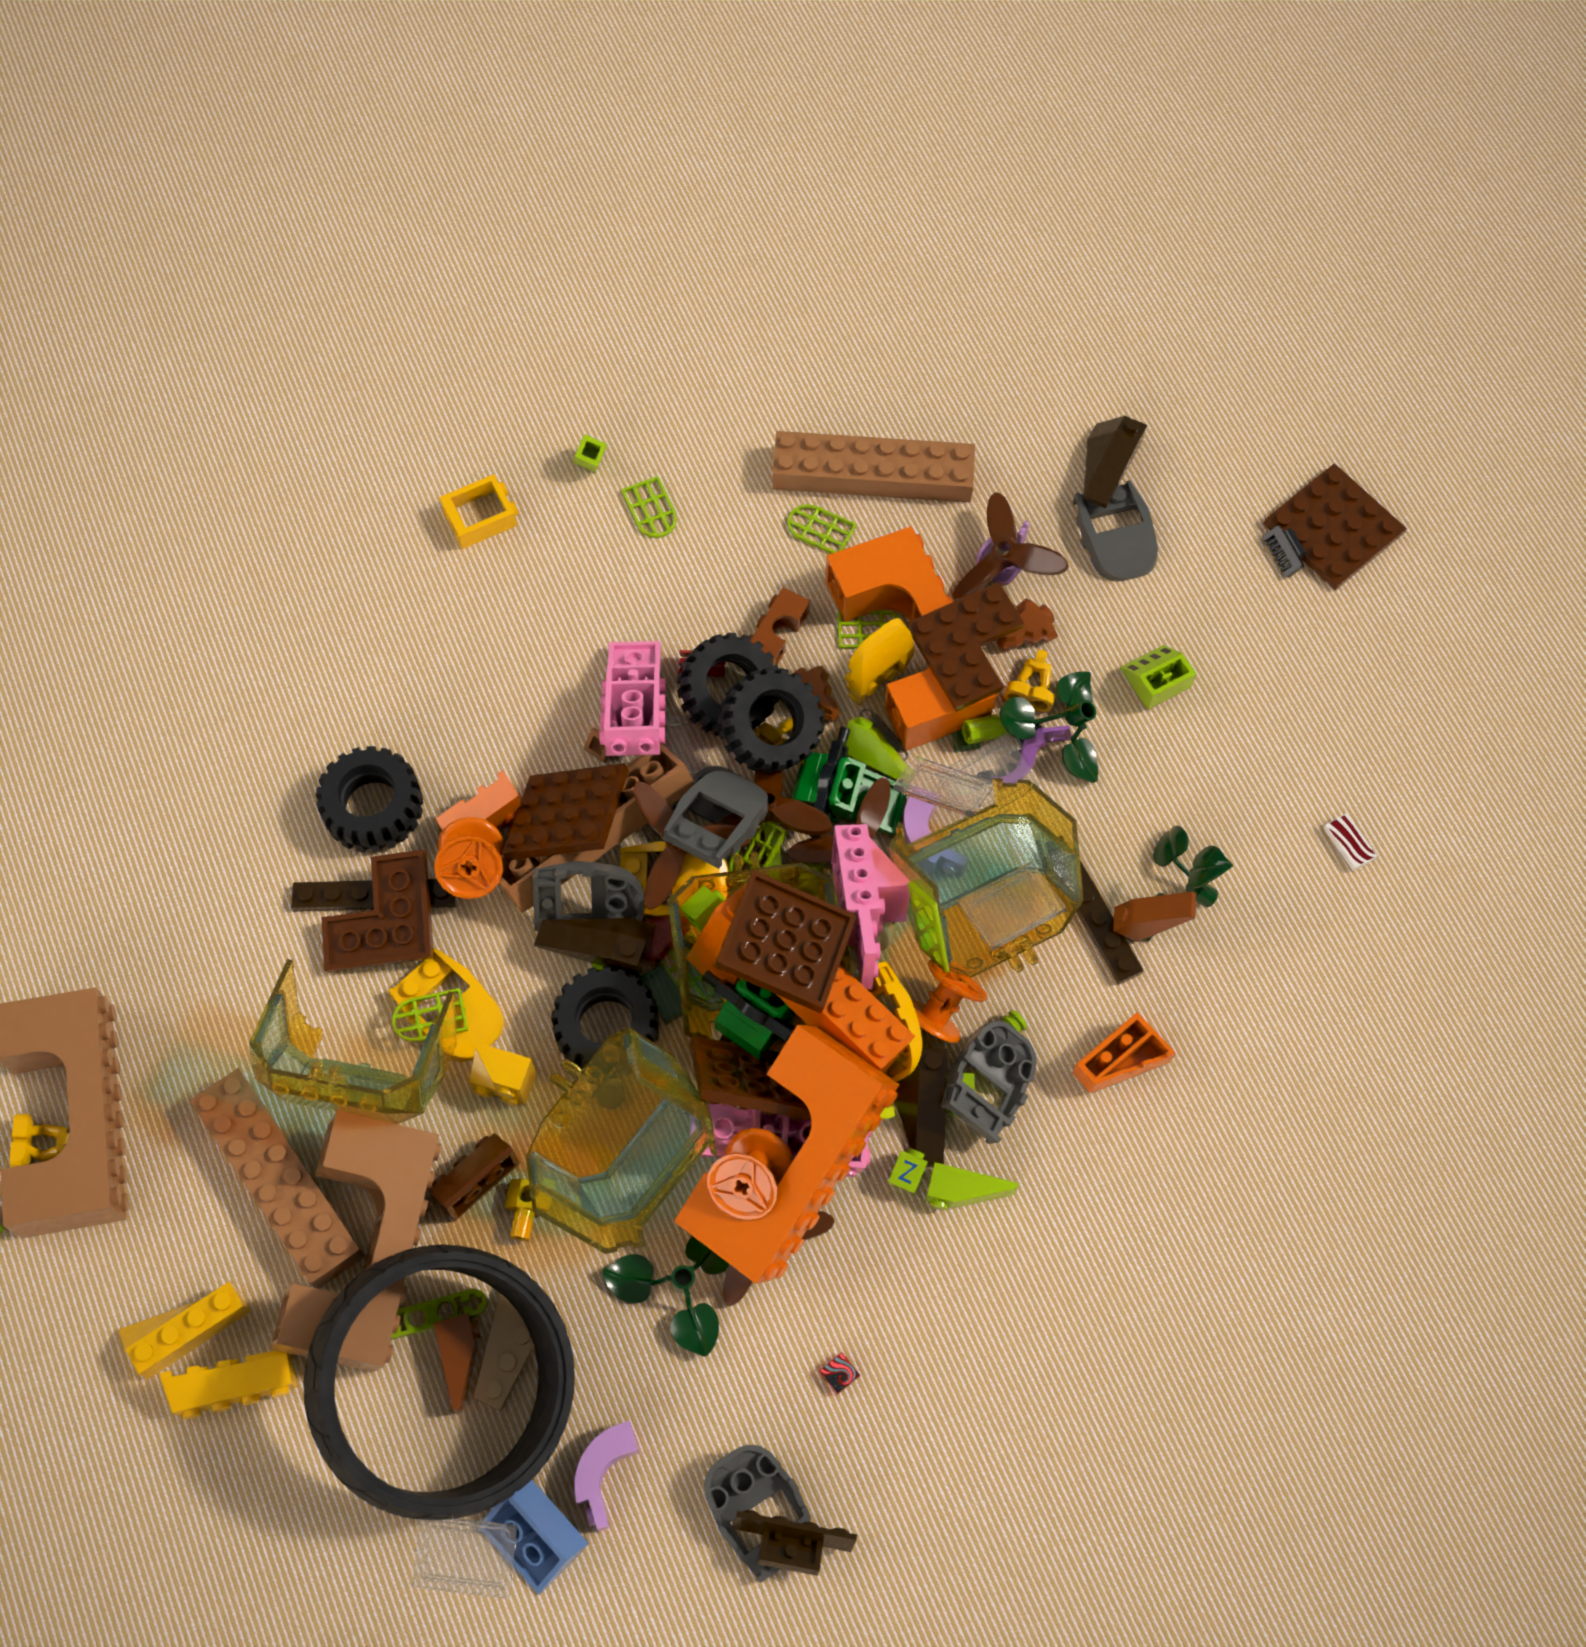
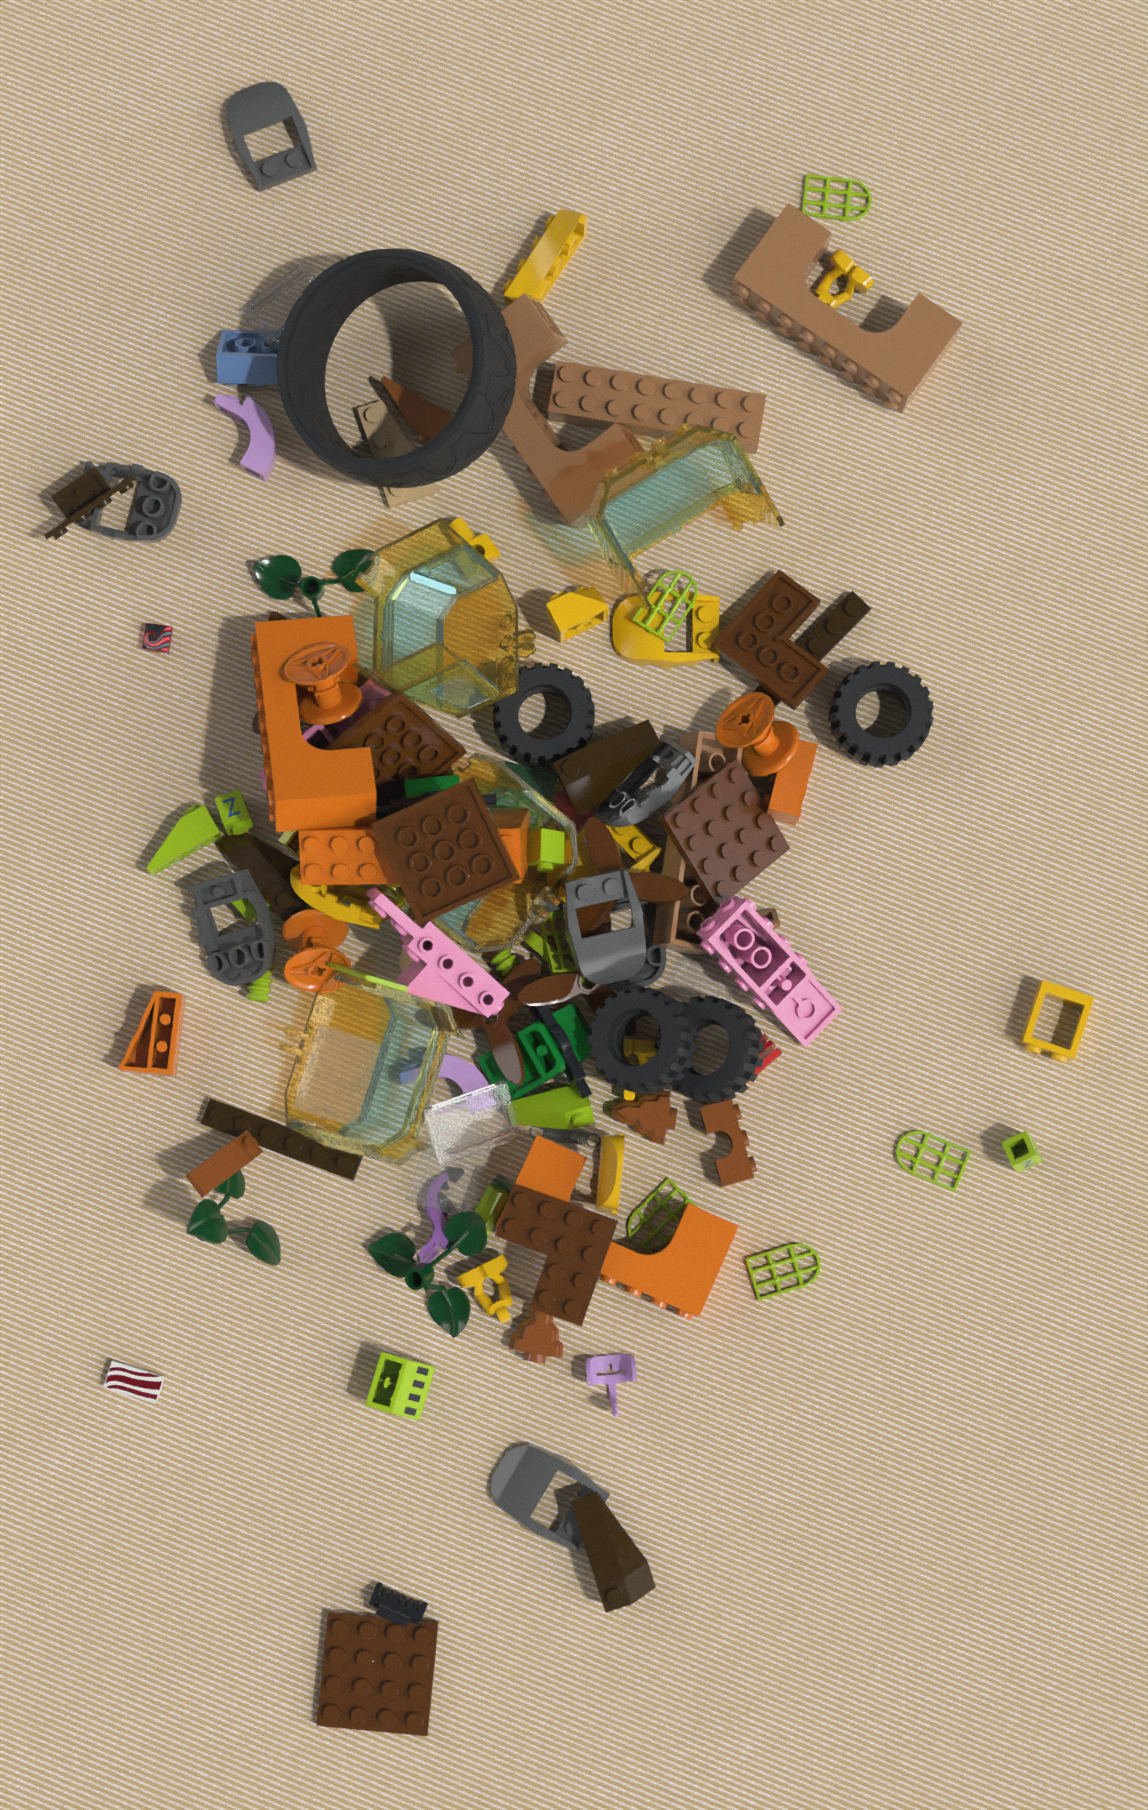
camera: 135 degrees right, 15 degrees up
(173, 1334) = (618, 254): yellow wedge -> none
(474, 1175) = (527, 530): reddish brown slope -> none
(873, 466) = (792, 1362): medium nougat brick -> none
(1024, 556) = (626, 1390): reddish brown piece -> none

